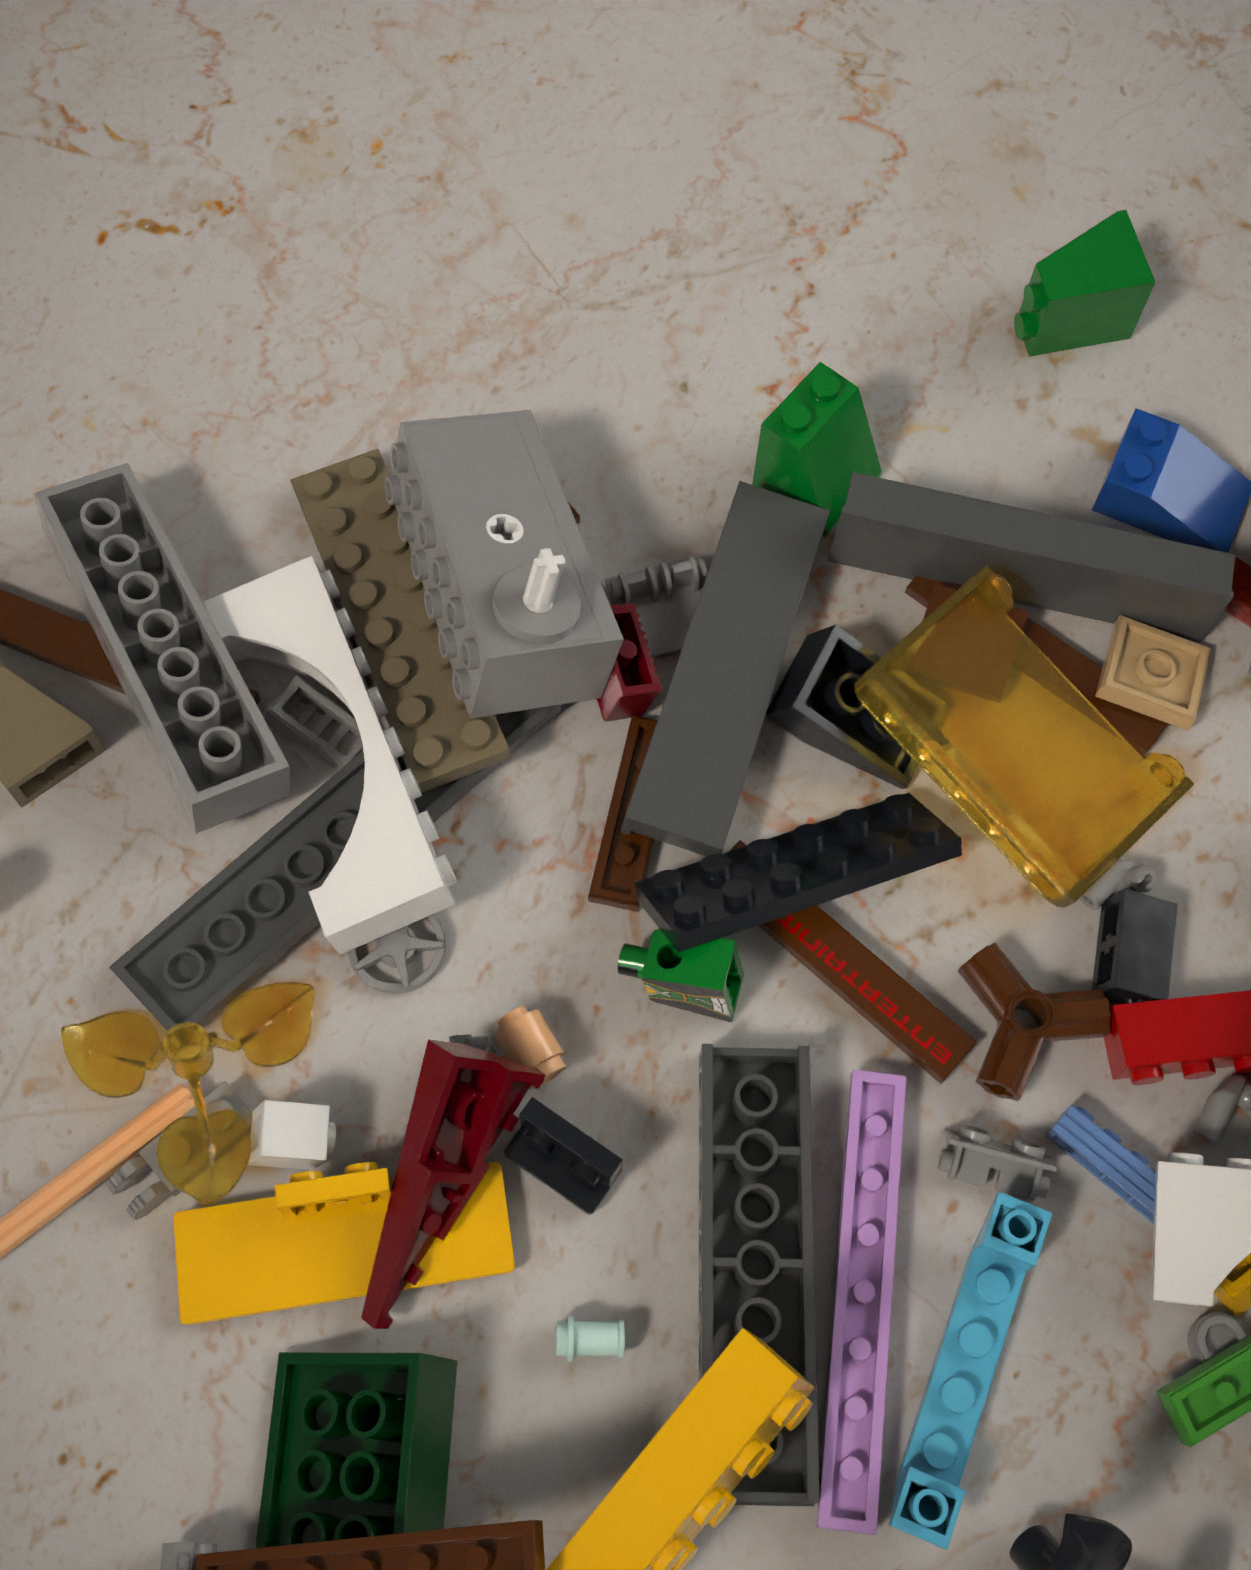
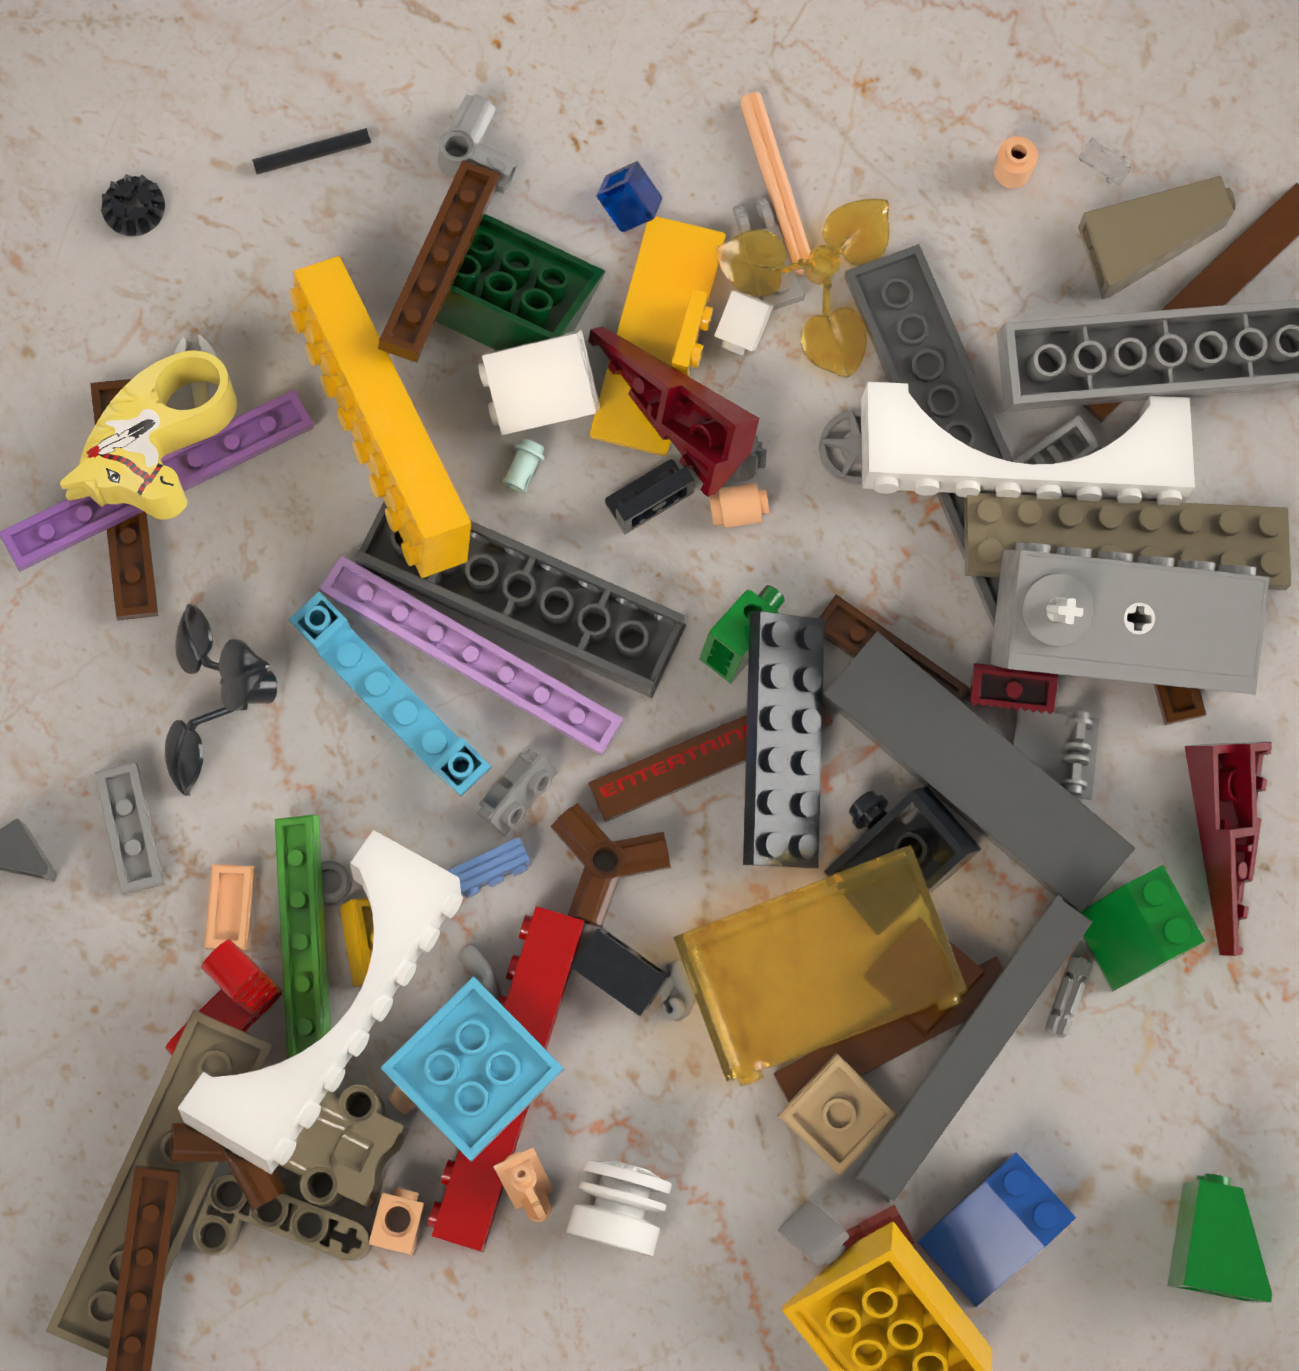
camera: 115 degrees right, 10 degrees up
(164, 1362) = (629, 197): none -> clear blue panel
(482, 1356) = (539, 383): none -> white panel
(635, 435) = (1225, 796): none -> dark red wedge
(821, 763) = (868, 810): none -> black plate

